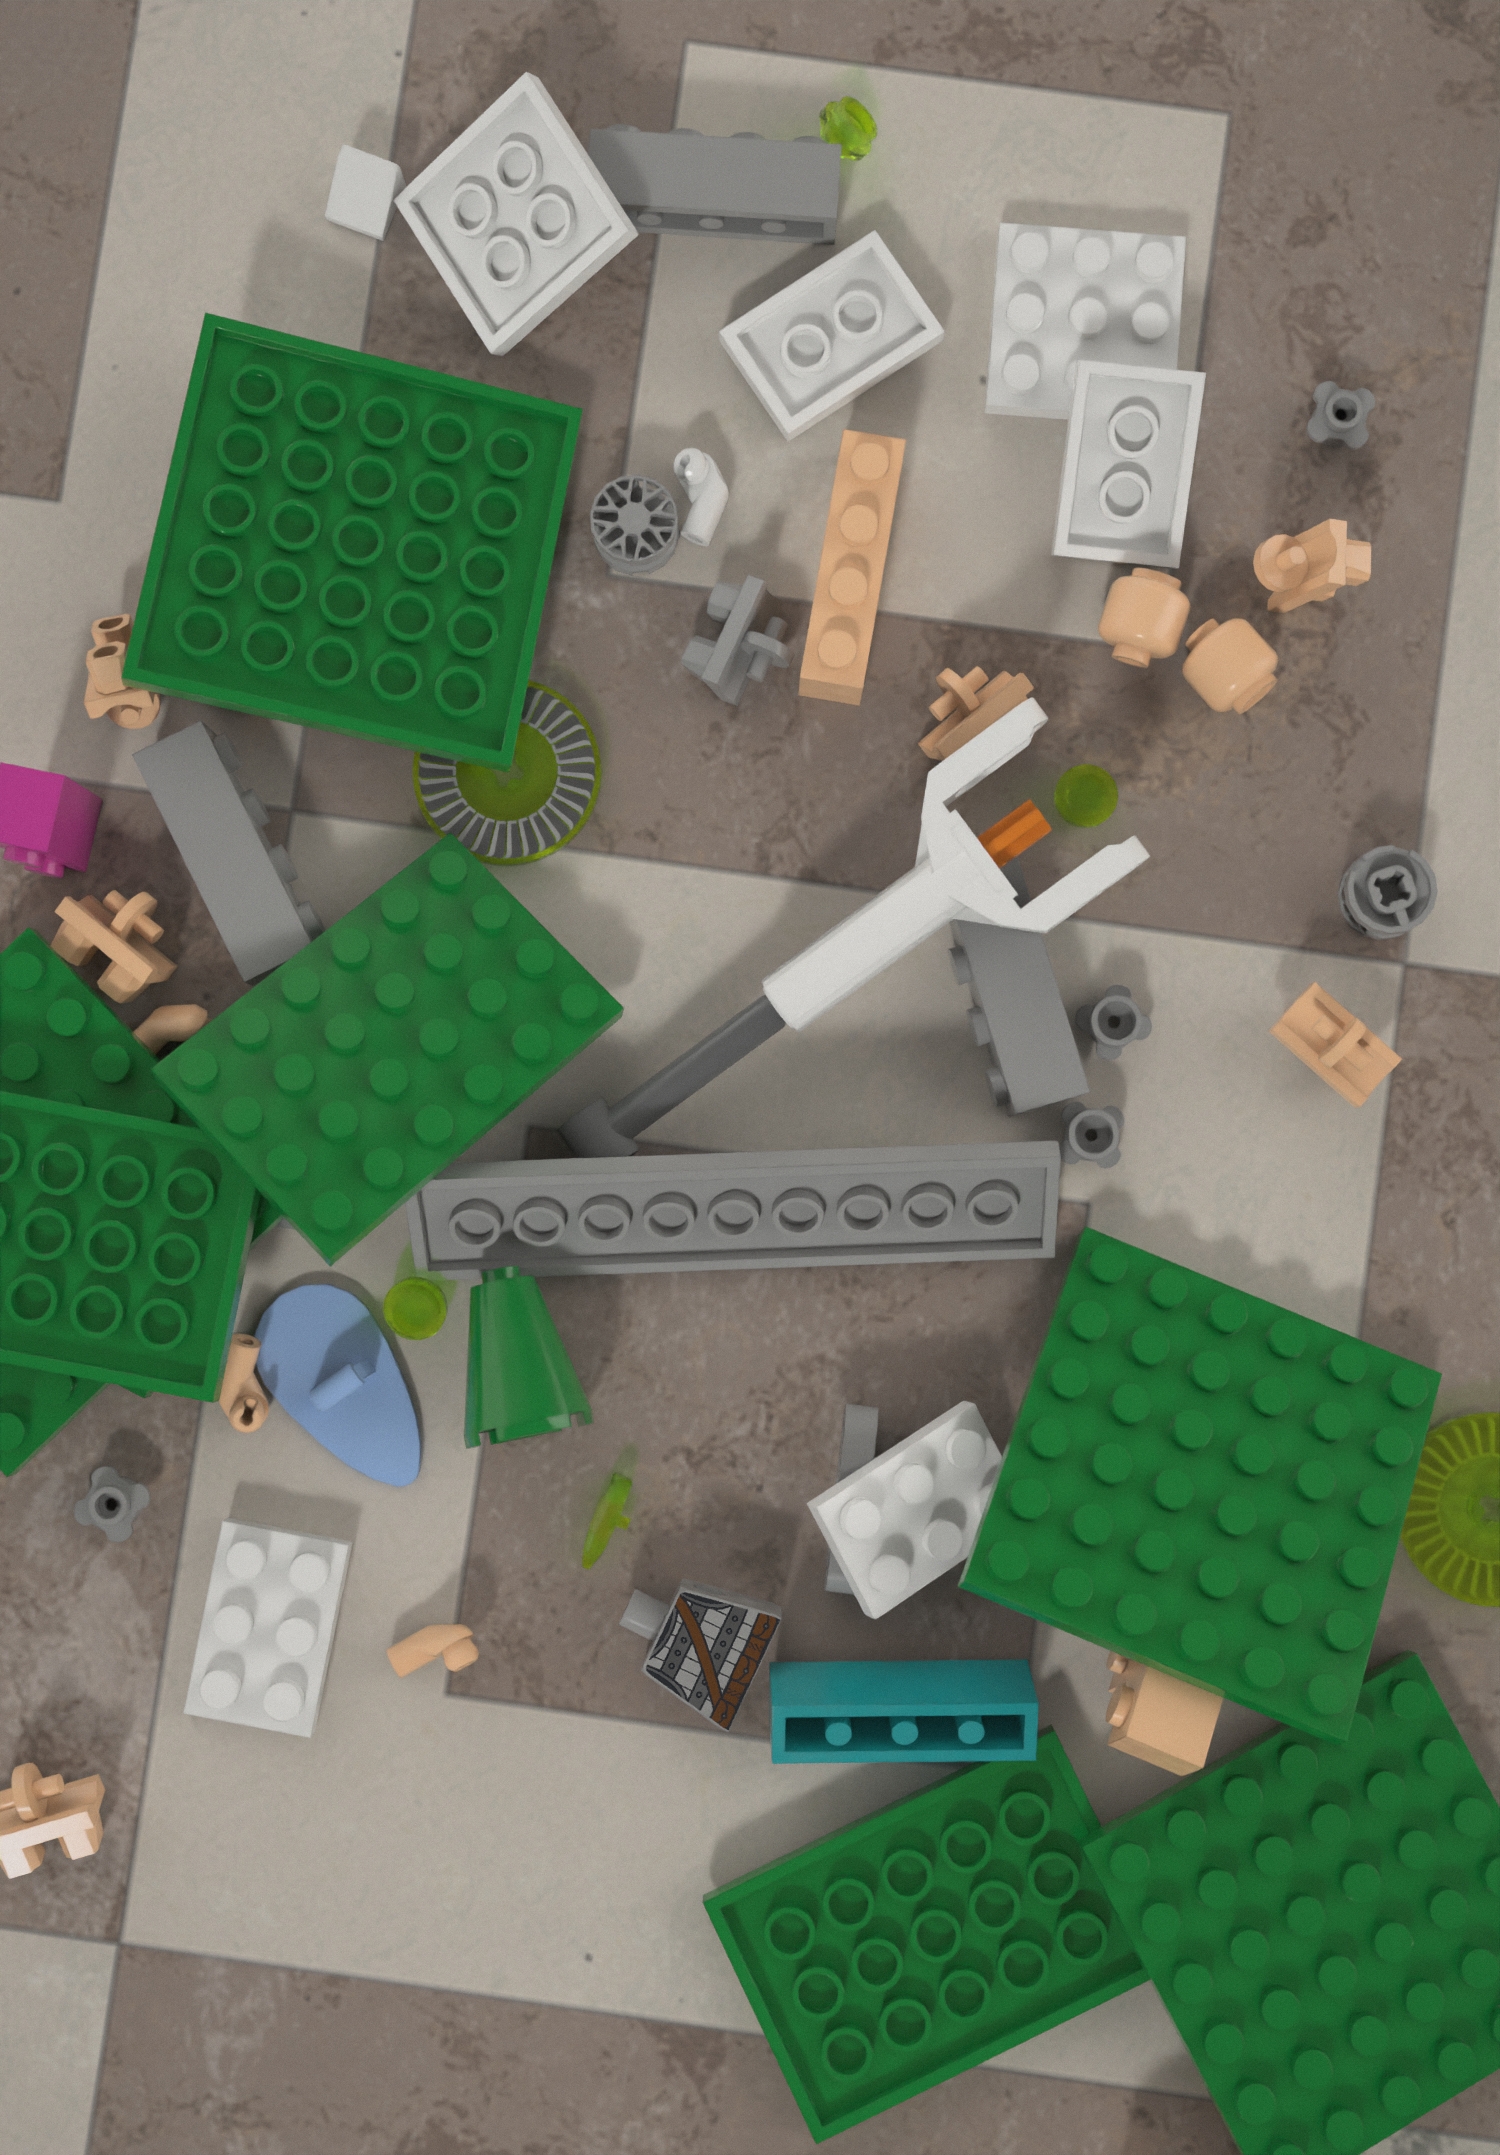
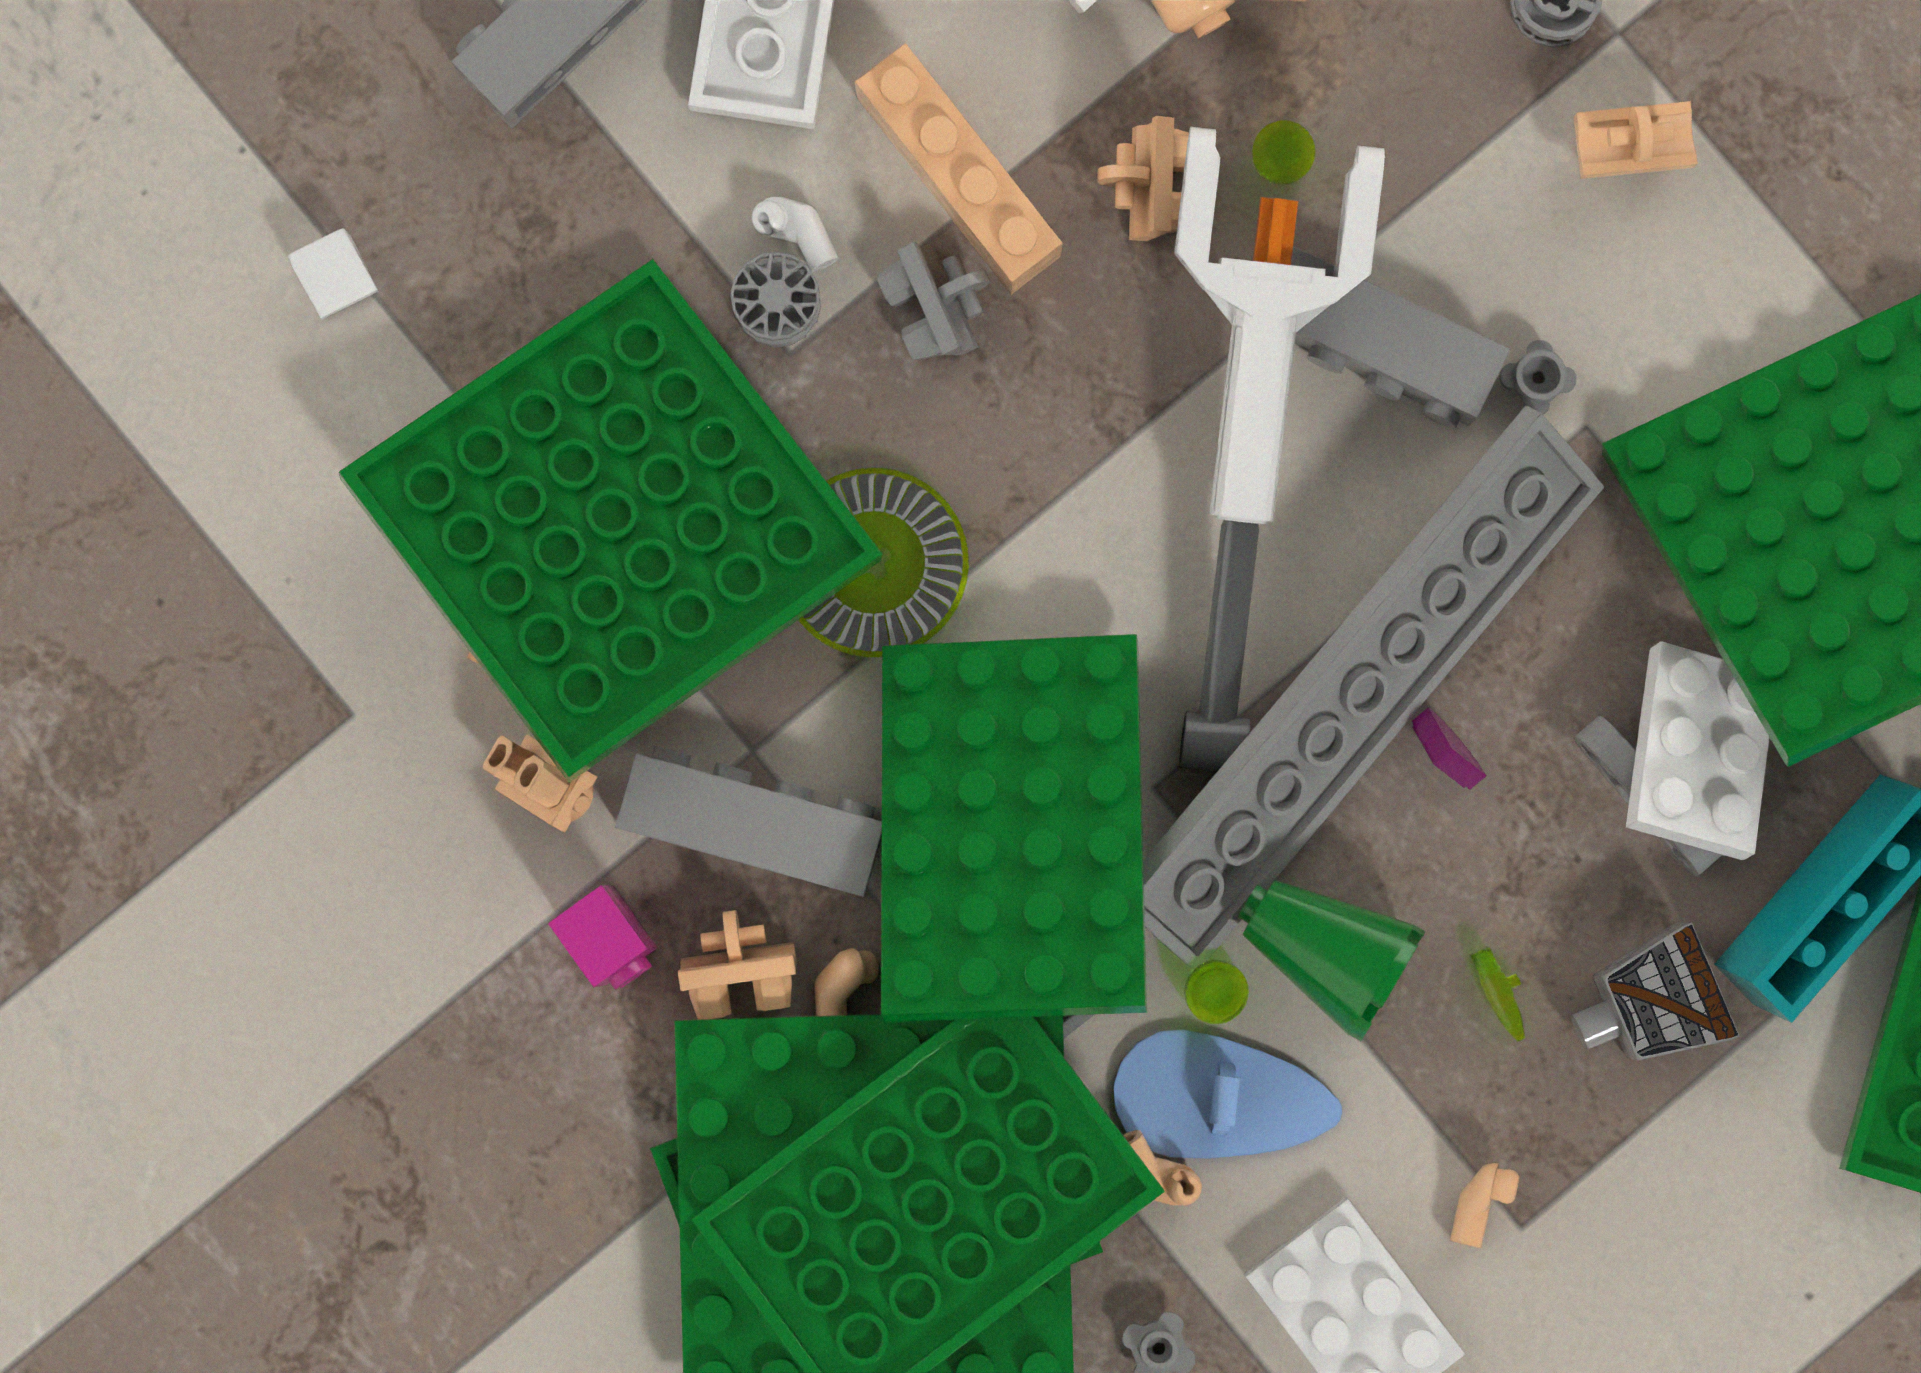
camera: 50 degrees left, 0 degrees up
(515, 215) = (465, 176): white plate -> none
(750, 1317) = (1447, 749): none -> magenta tile
(1131, 1022) = (1485, 276): light grey plate -> none

